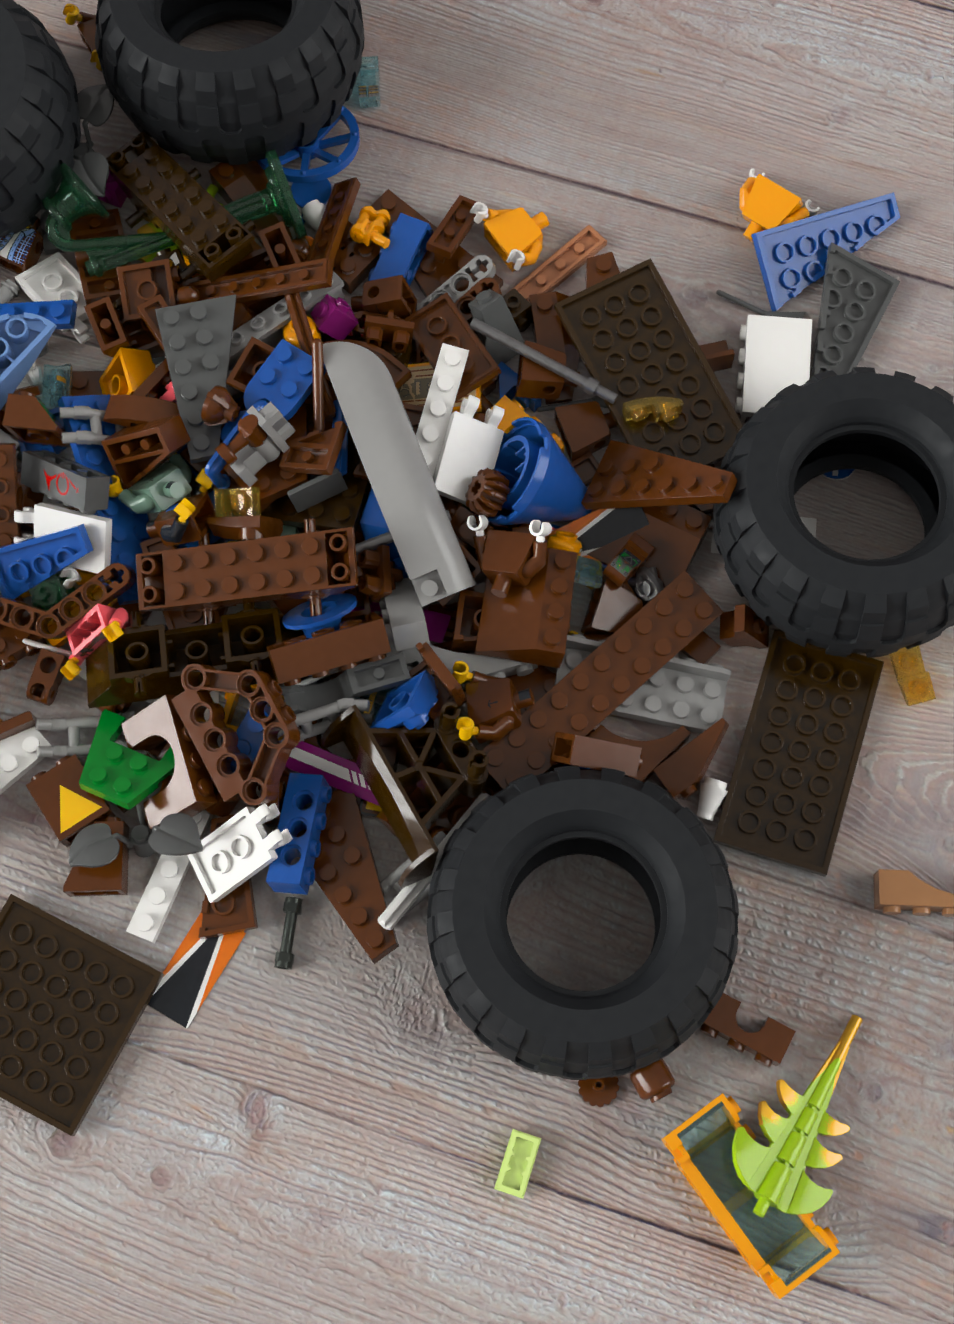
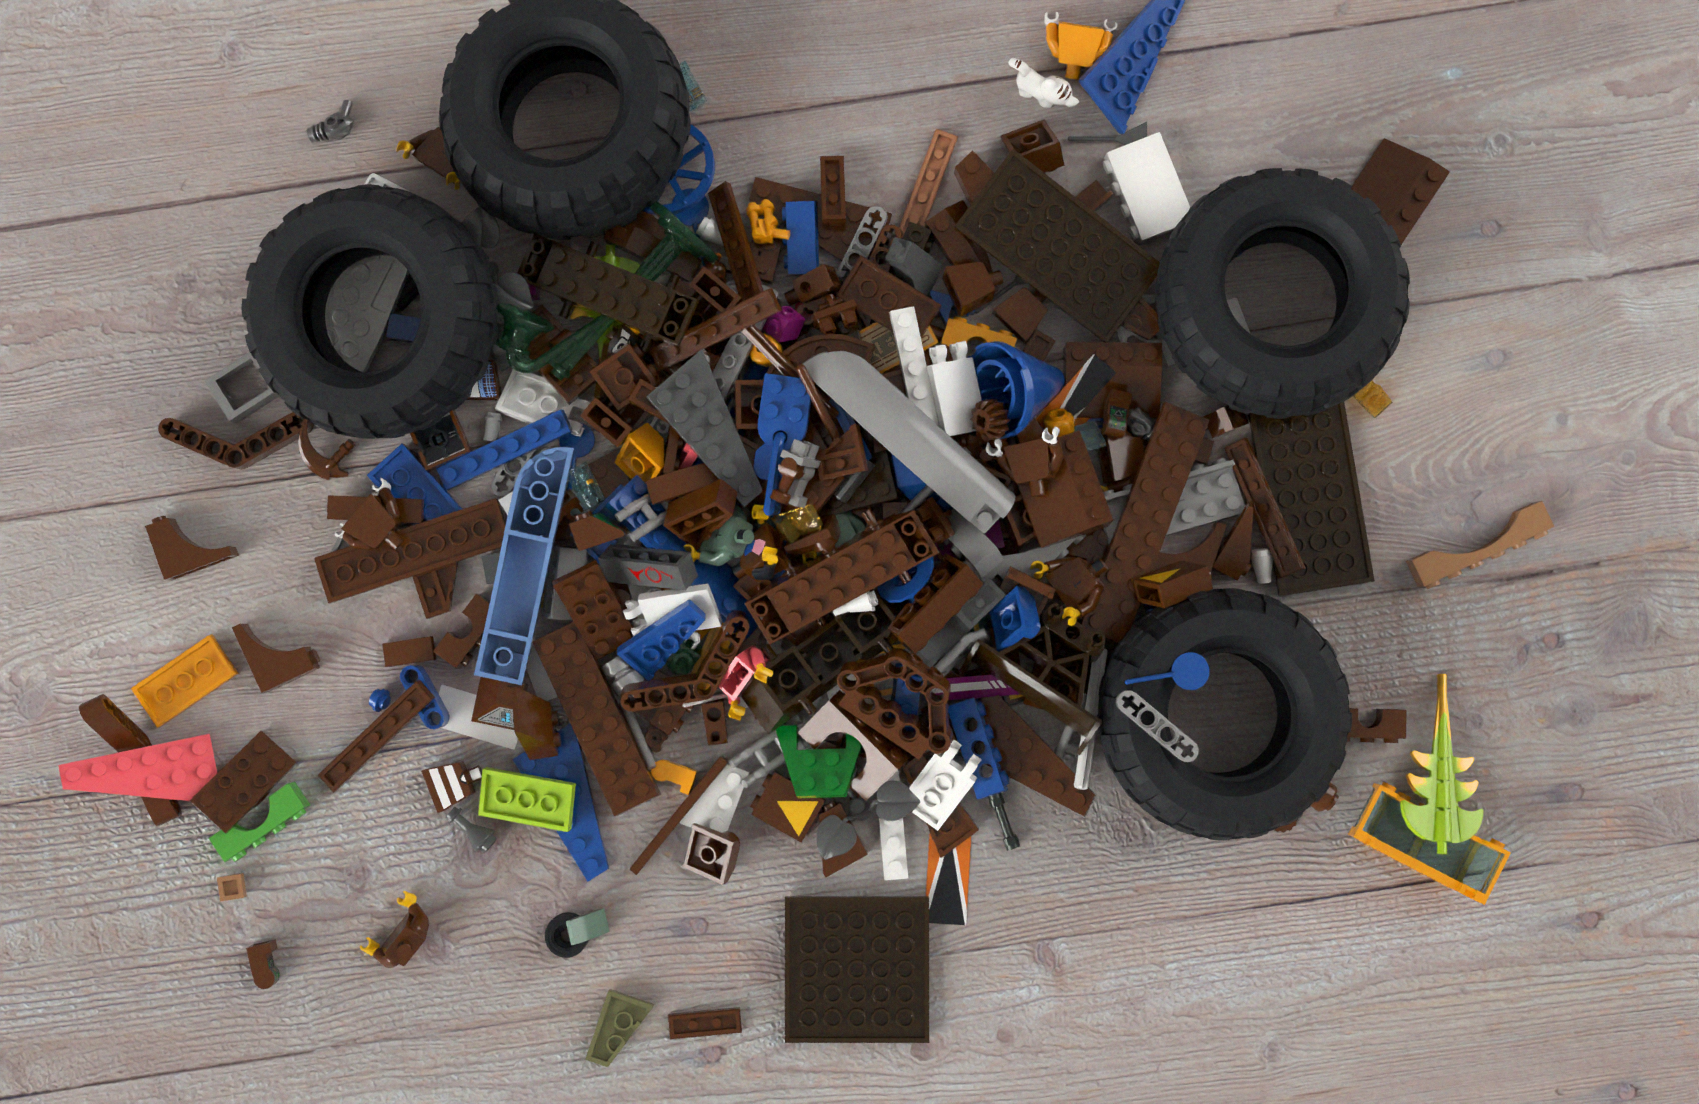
camera: 30 degrees left, 15 degrees up
(75, 353) = (581, 445): none -> blue piece
(188, 294) = (659, 365): reddish brown hinge -> none
(219, 407) = (749, 456): reddish brown piece -> none
(258, 612) = (863, 603): none -> white cone
(493, 872) = (1157, 725): none -> light grey beam
(512, 233) = (881, 170): light orange torso -> none
(517, 1163) = (1253, 899): yellowish green plate -> none
(557, 832) = (1188, 672): none -> blue piece
(590, 385) = (1018, 282): flat silver bar -> none
(646, 478) = (1103, 346): reddish brown wing -> none
(661, 408) = (1084, 276): clear yellow slope -> none
(683, 283) = (1037, 145): none -> reddish brown slope
(716, 230) = (1047, 91): none -> white animal
(741, 739) = (1265, 508): none -> reddish brown tile
(850, 310) = (1185, 109): dark grey wing -> none

